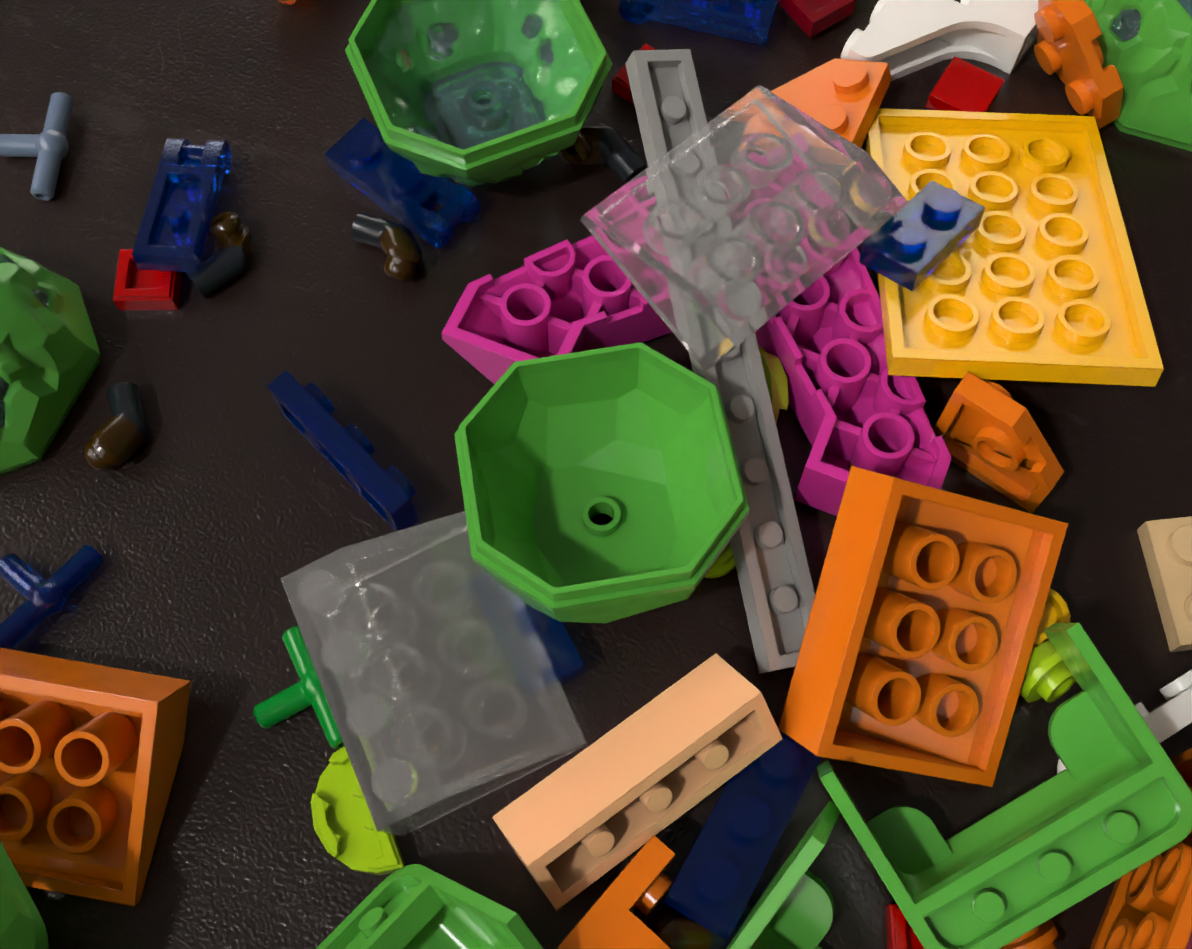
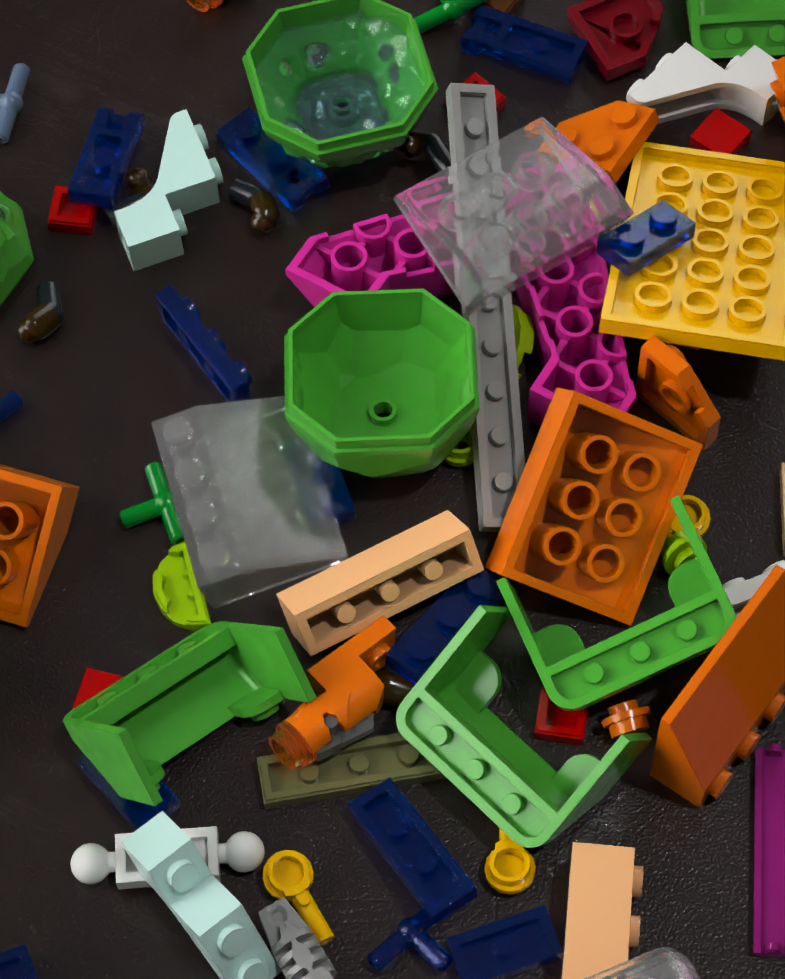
camera: 10 degrees right, 5 degrees down
(289, 228) = (184, 184): none -> light aqua arch

